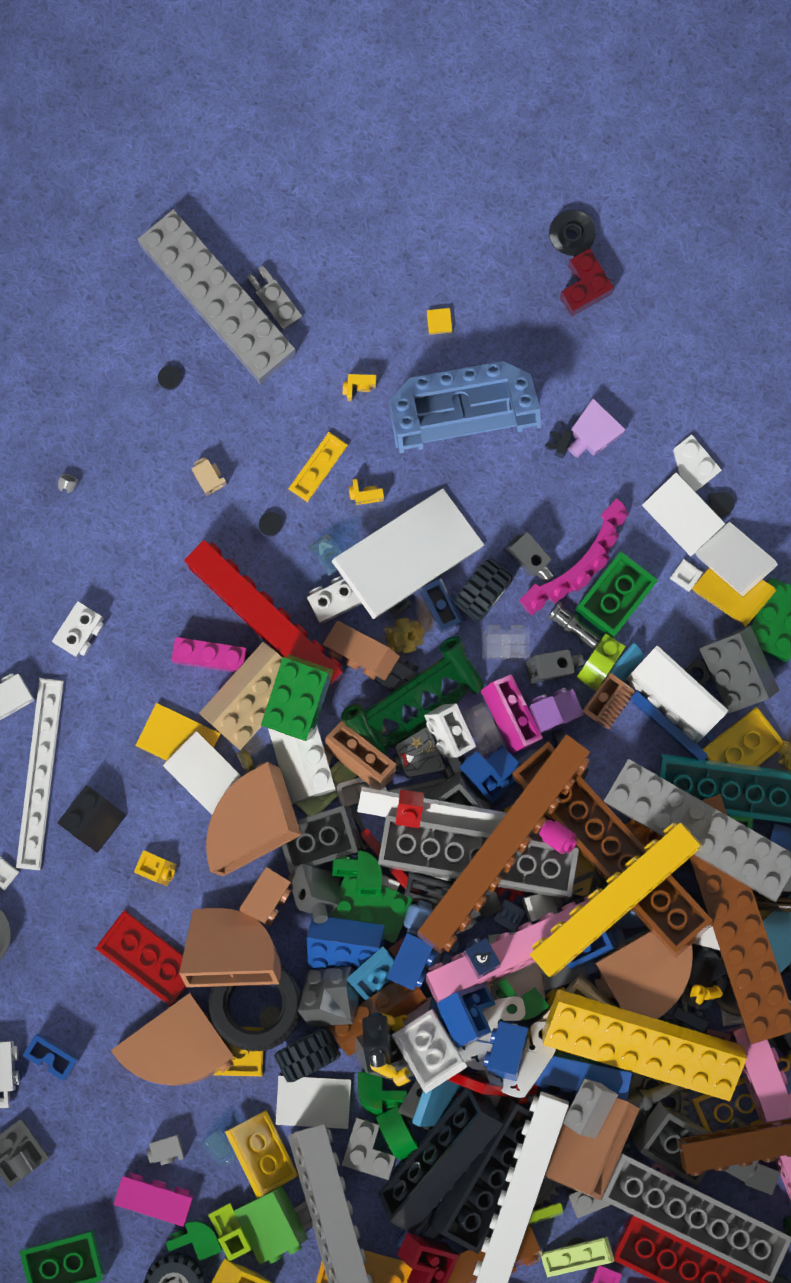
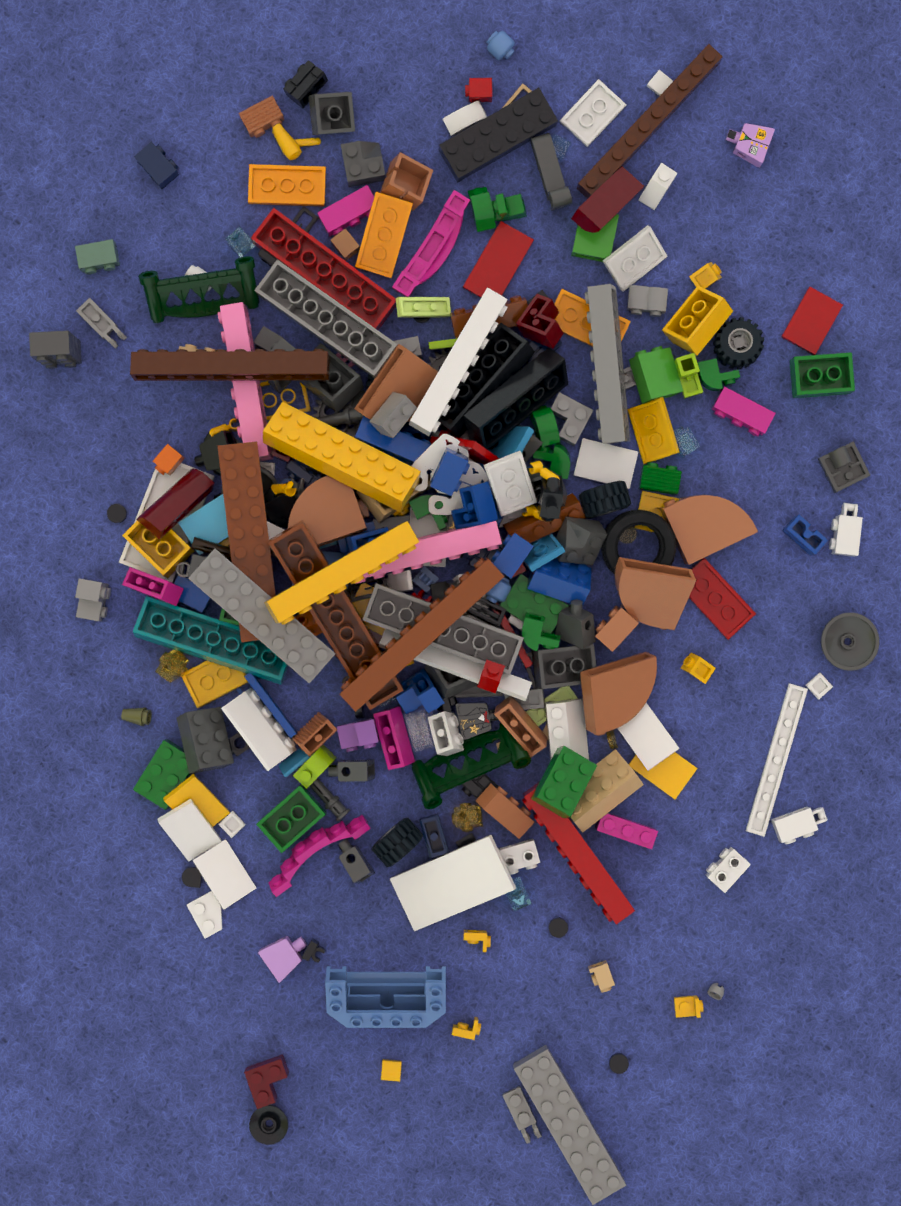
camera: 170 degrees left, 5 degrees up
(91, 818) = (742, 716): black slope -> none
(98, 459) = (688, 1006): none -> yellow bracket
(165, 1150) = (727, 447): light grey brick -> none
(242, 1094) = (660, 479): none -> green brick
(318, 467) = (511, 967): yellow tile -> none
(481, 957) = (456, 548): dark blue brick -> none
(505, 643) = (387, 795): clear brick -> none
(558, 837) = (377, 632): dark pink brick -> none

